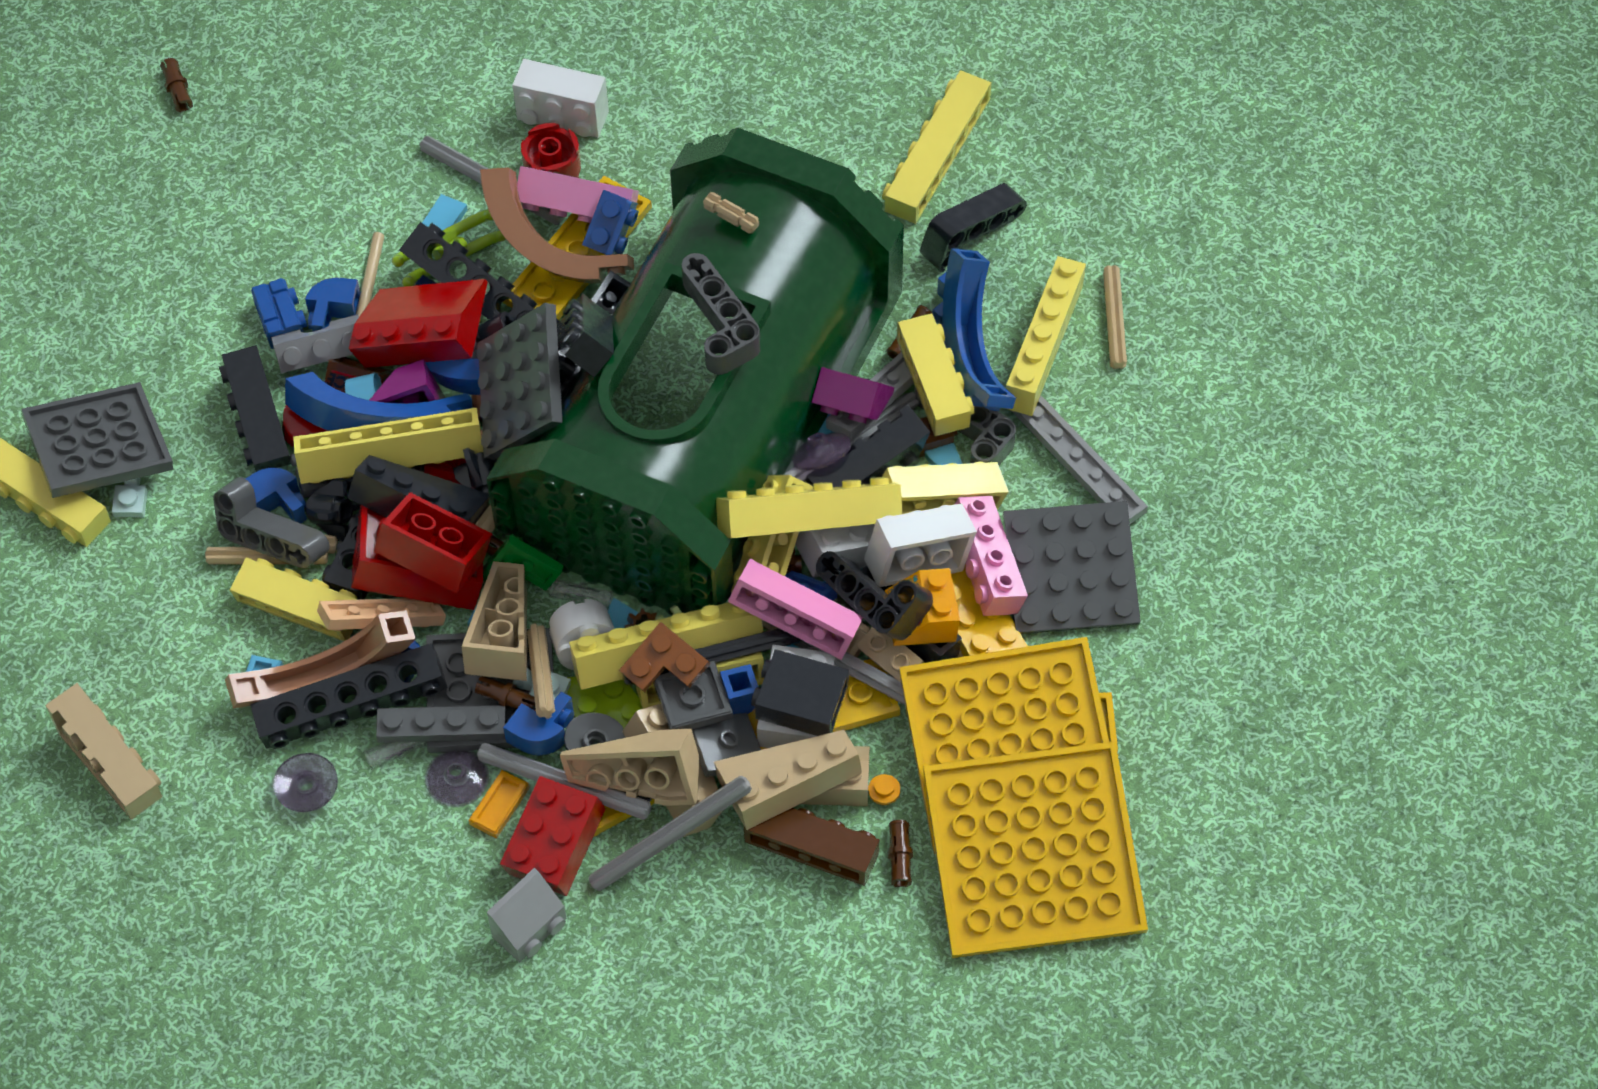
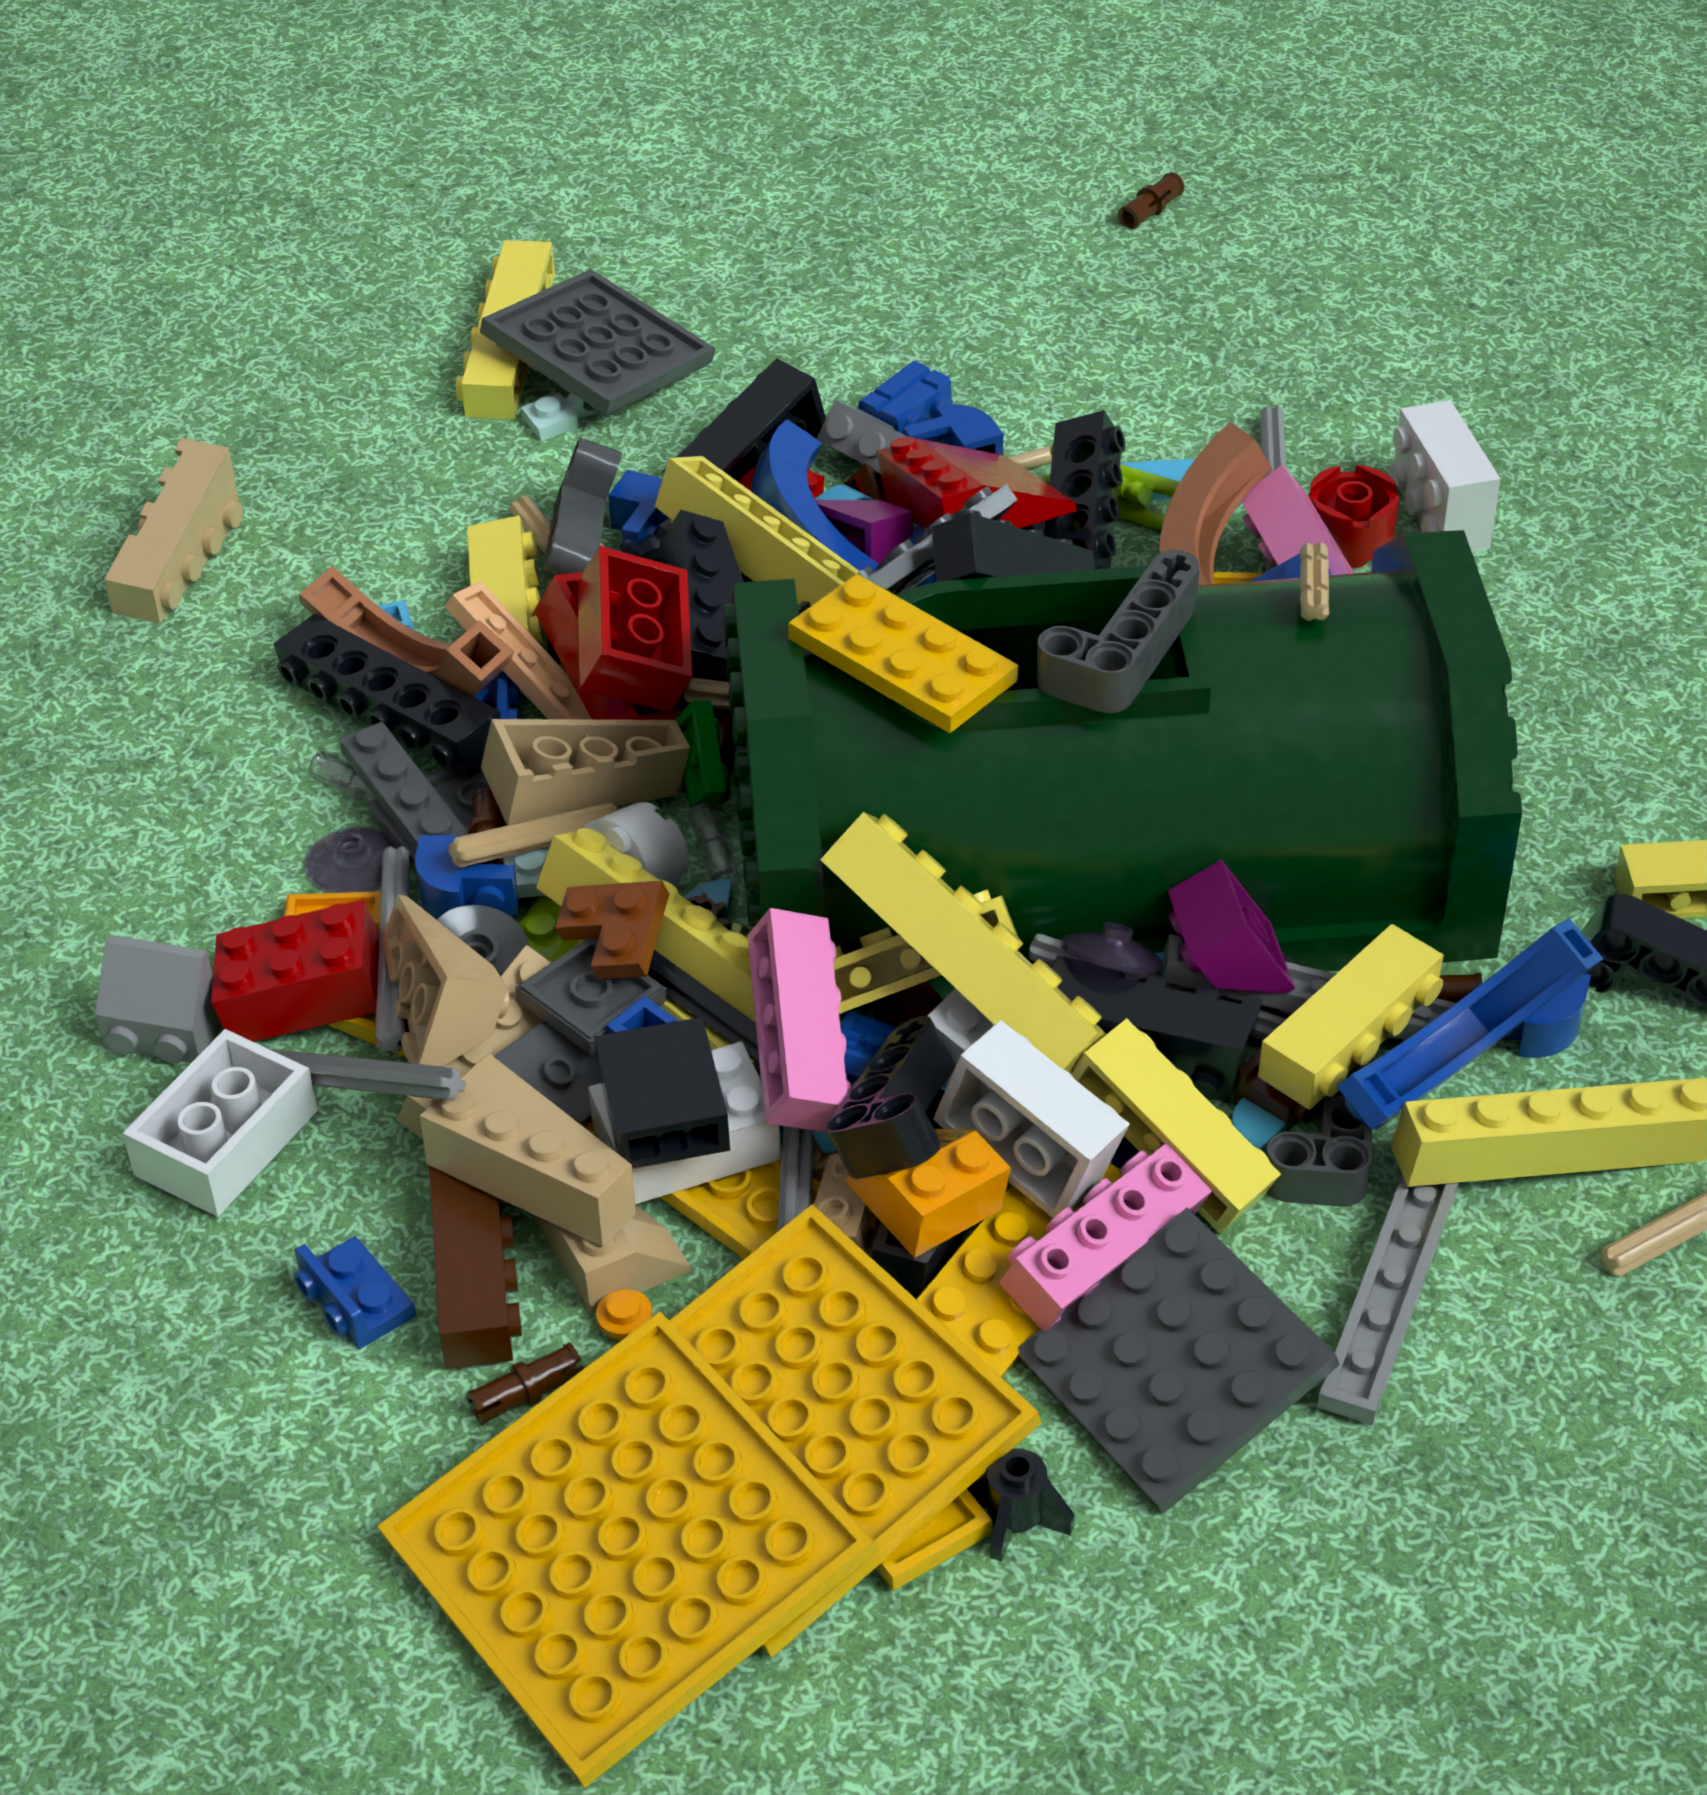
camera: 60 degrees right, 15 degrees down
(302, 770) = (245, 720): dish -> none
(638, 919) = (220, 1122): none -> white brick
(654, 419) = (903, 652): none -> yellow plate
(788, 906) = (353, 1290): none -> blue bracket
(1107, 673) = (1019, 1498): none -> black brick

